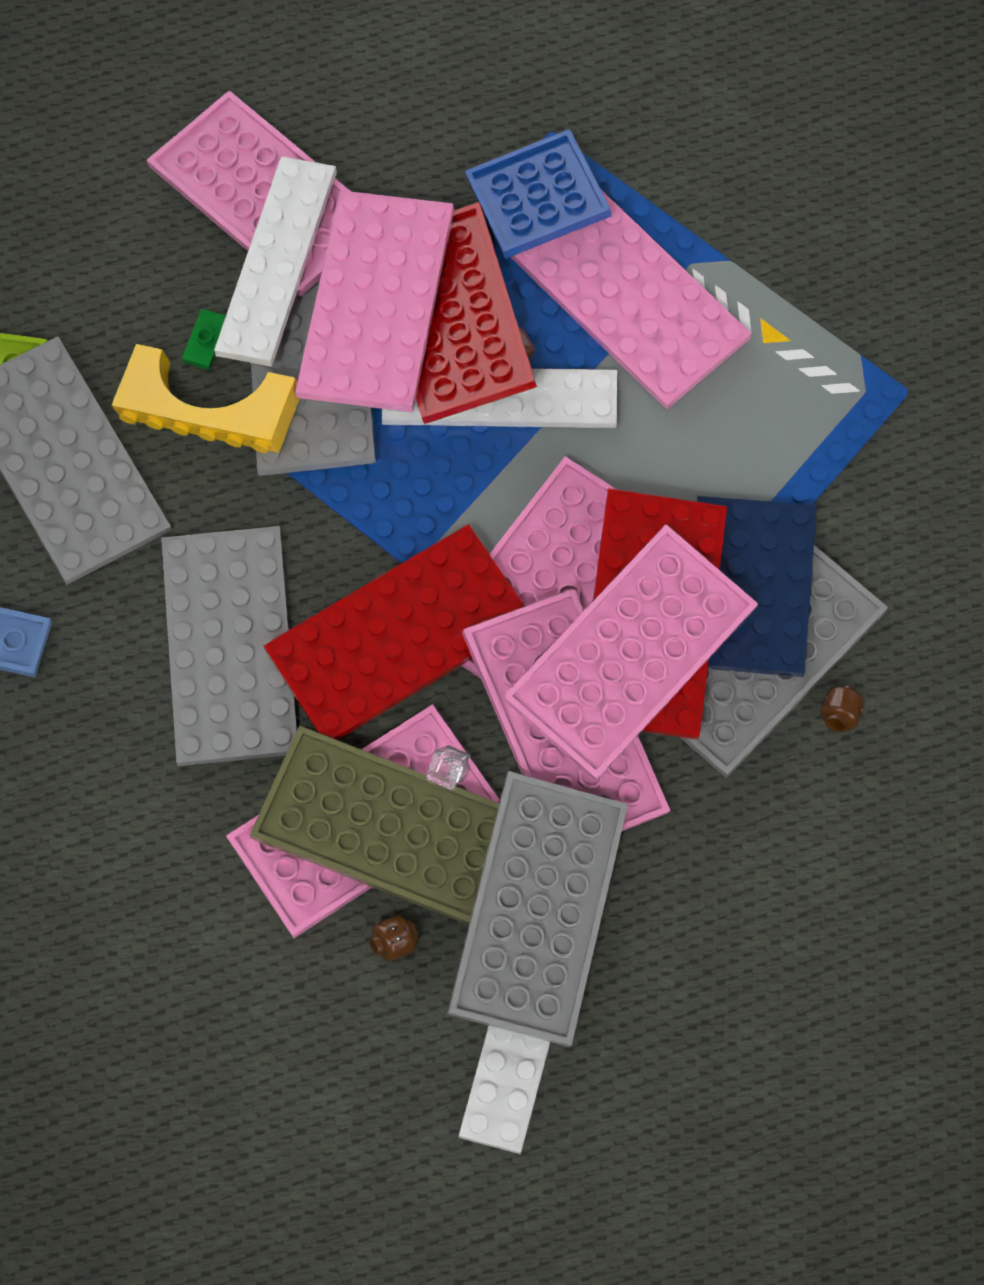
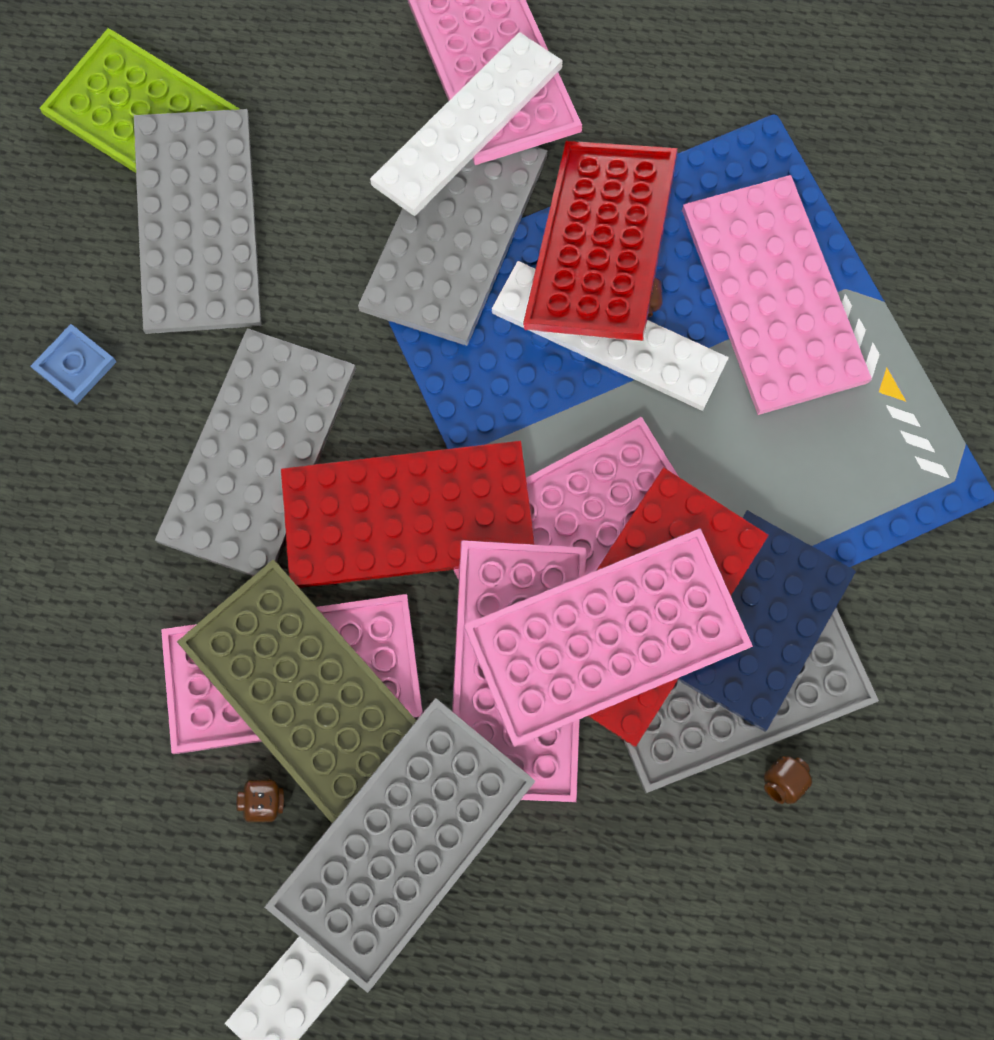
camera: 25 degrees right, 5 degrees up
(203, 340) = (366, 169): green plate -> none
(254, 422) = (375, 259): yellow arch -> none
(375, 301) = (535, 197): bright pink plate -> none
(448, 767) = (390, 667): clear brick -> none
(538, 193) = (735, 163): blue plate -> none

